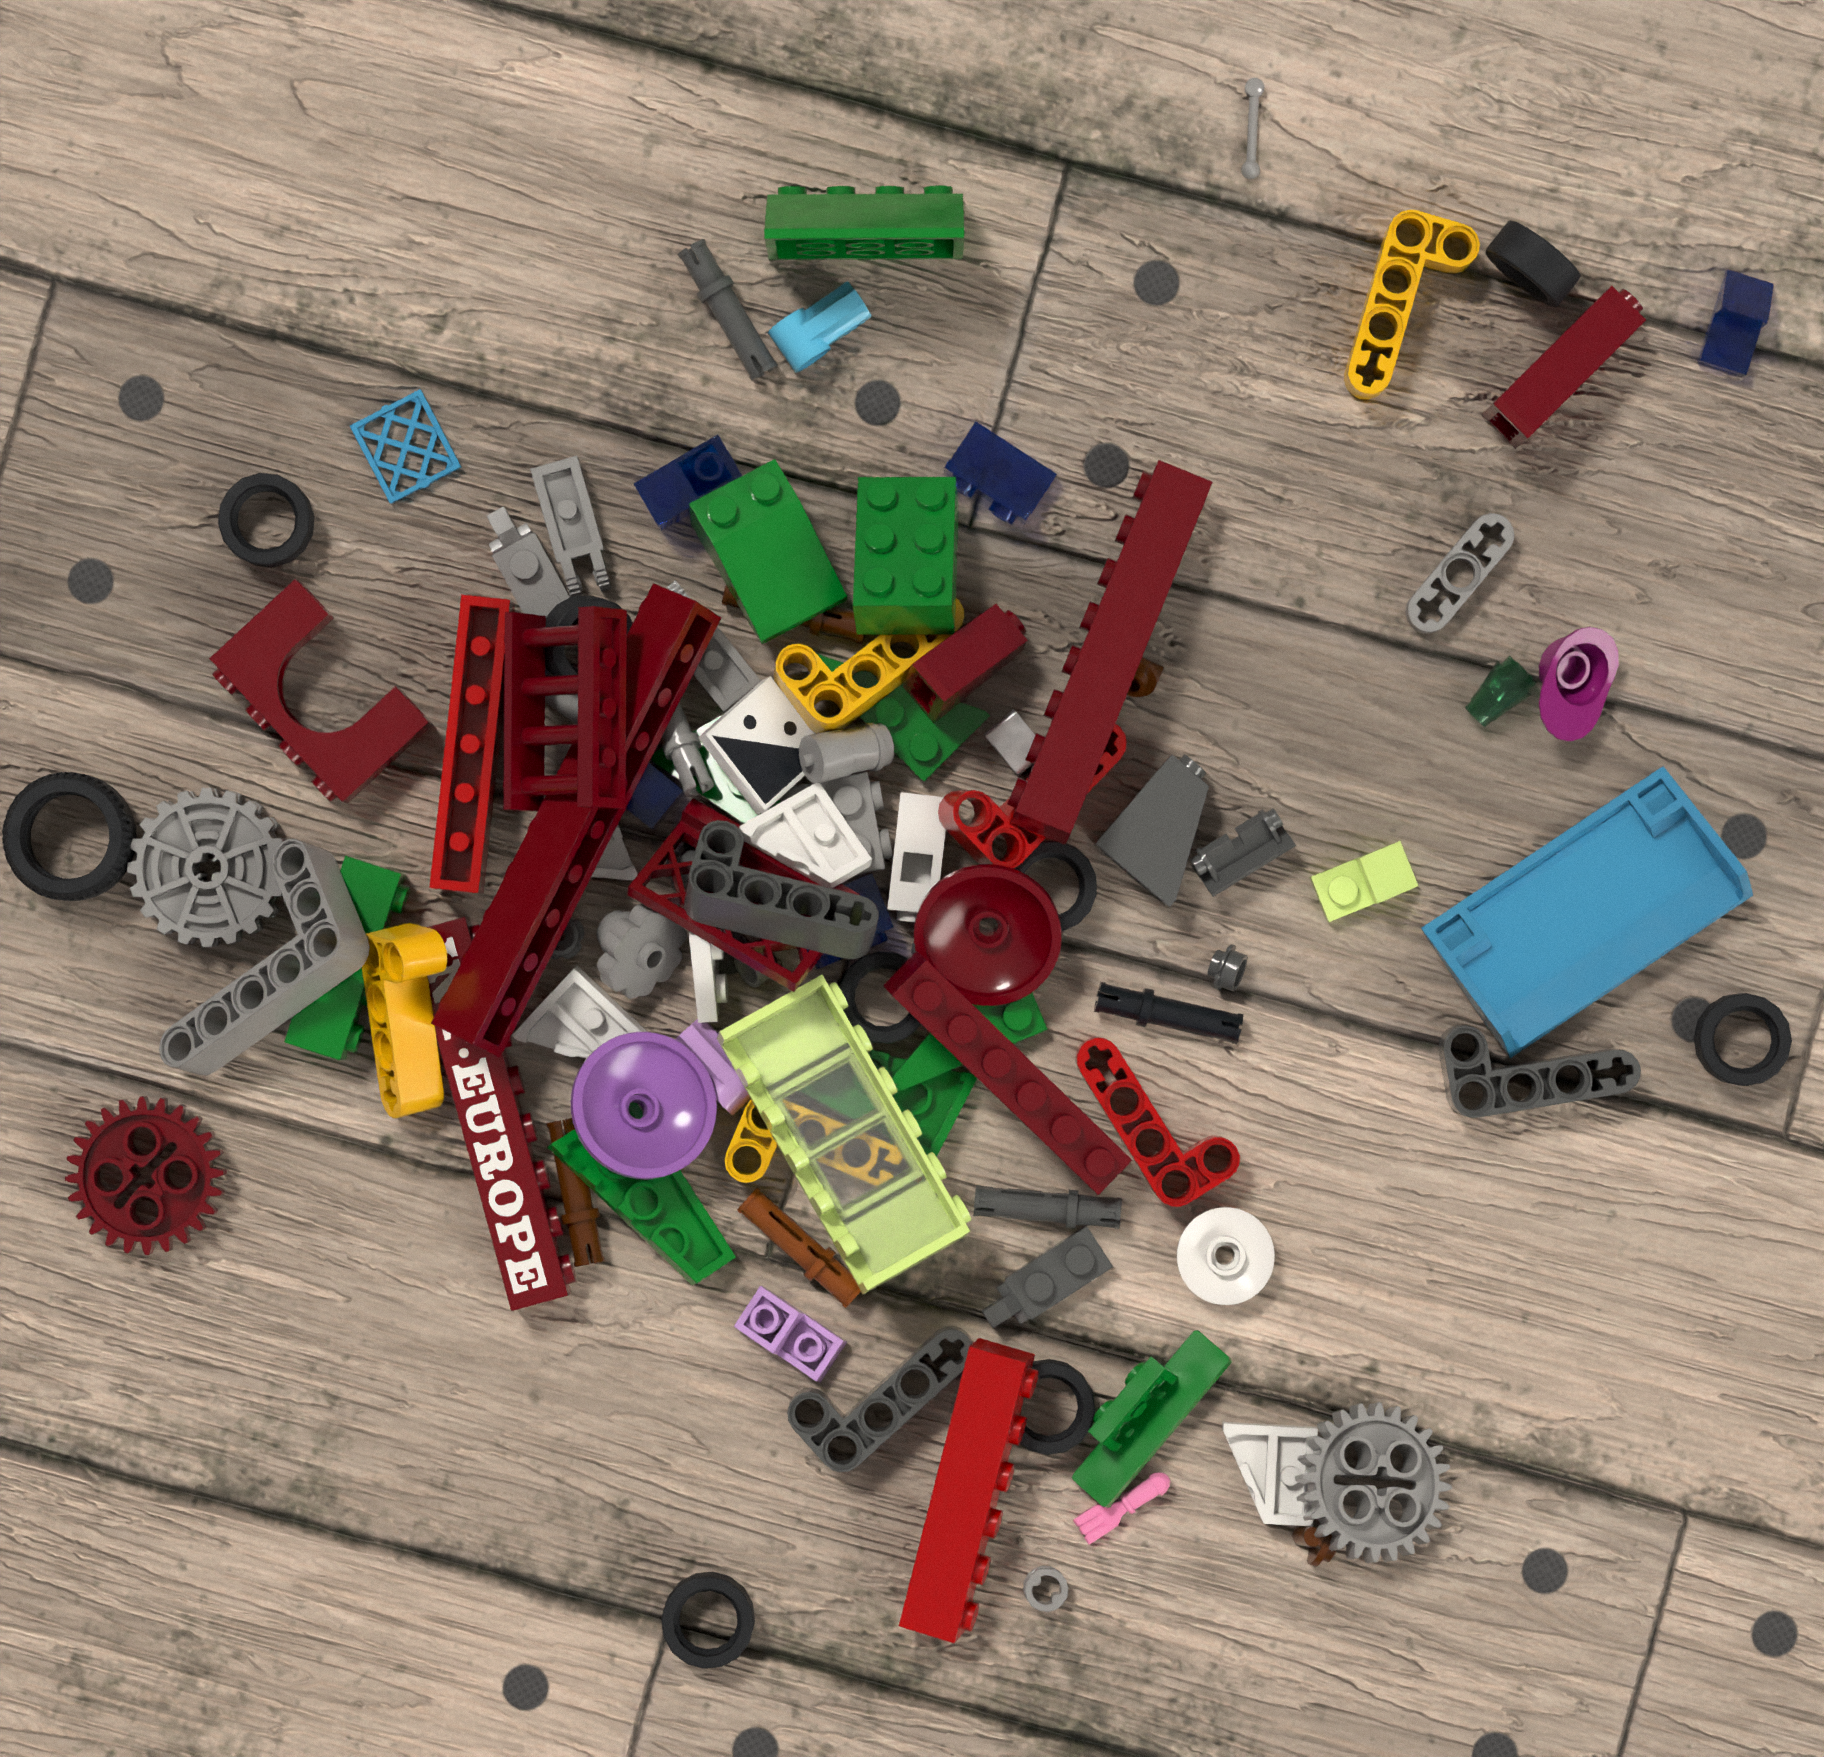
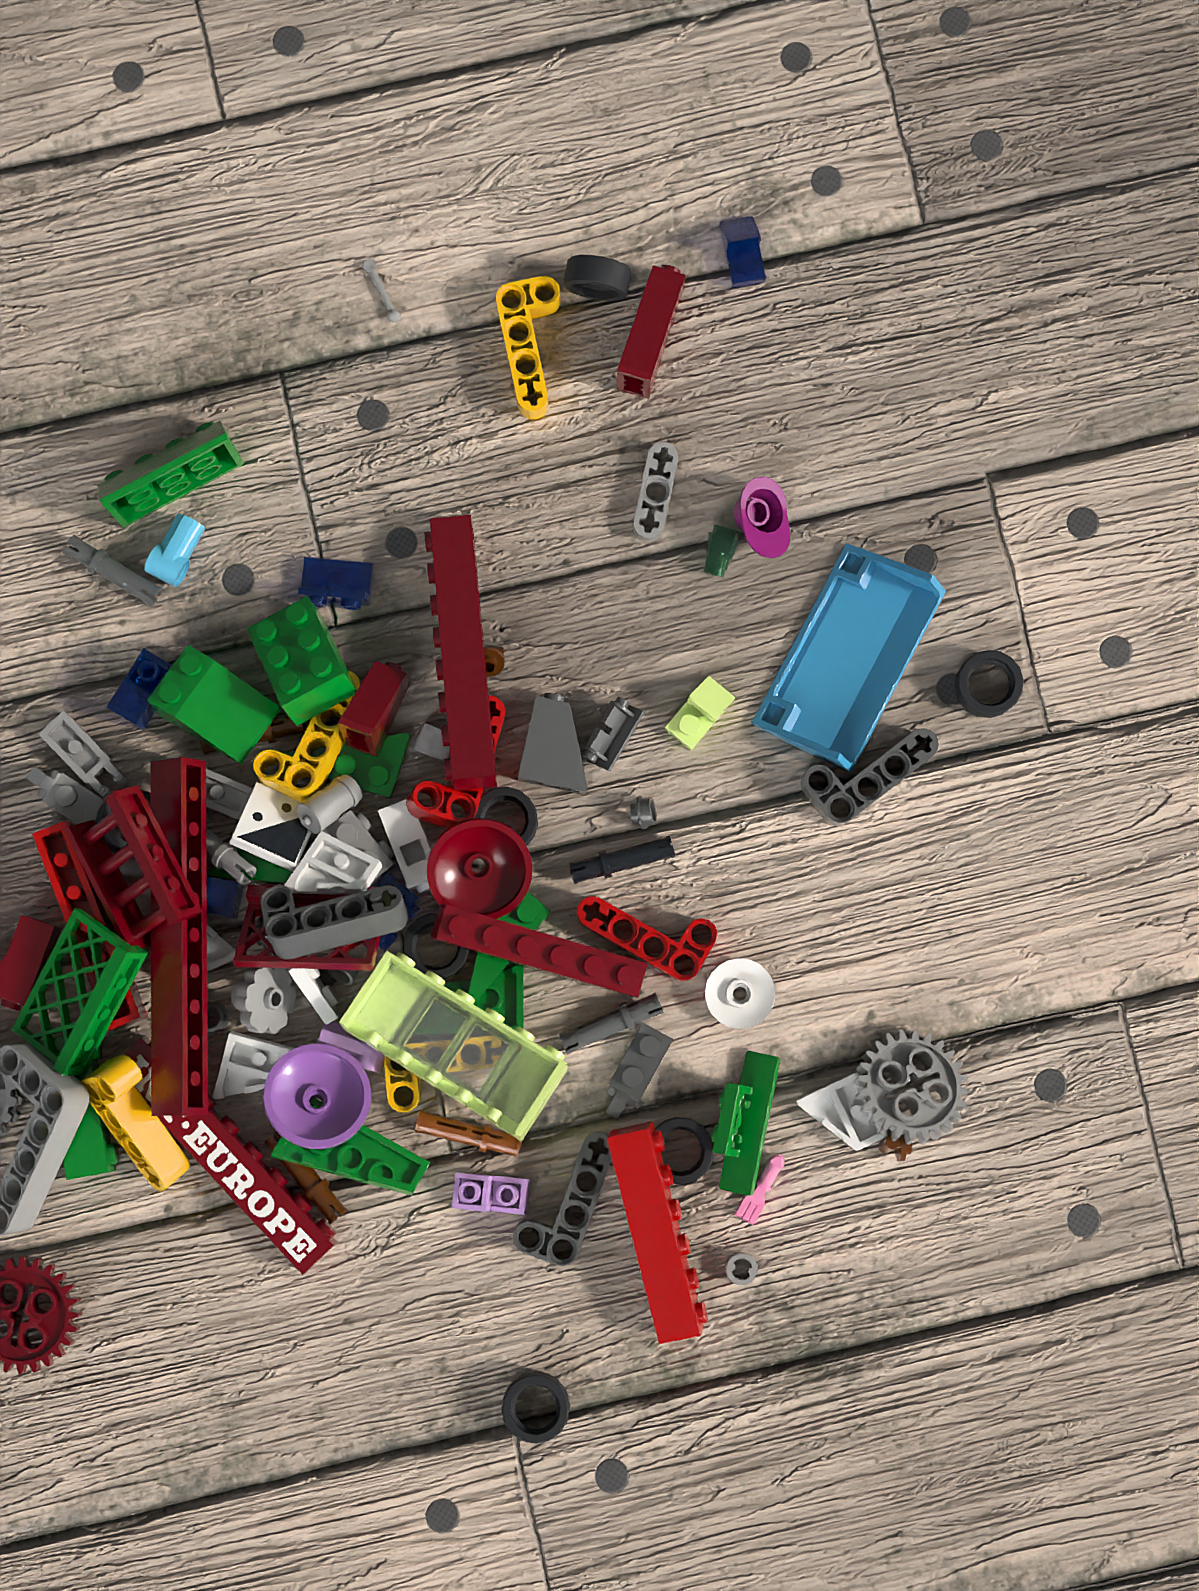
camera: 25 degrees left, 5 degrees down
(429, 860) = (96, 1007): none -> green fence

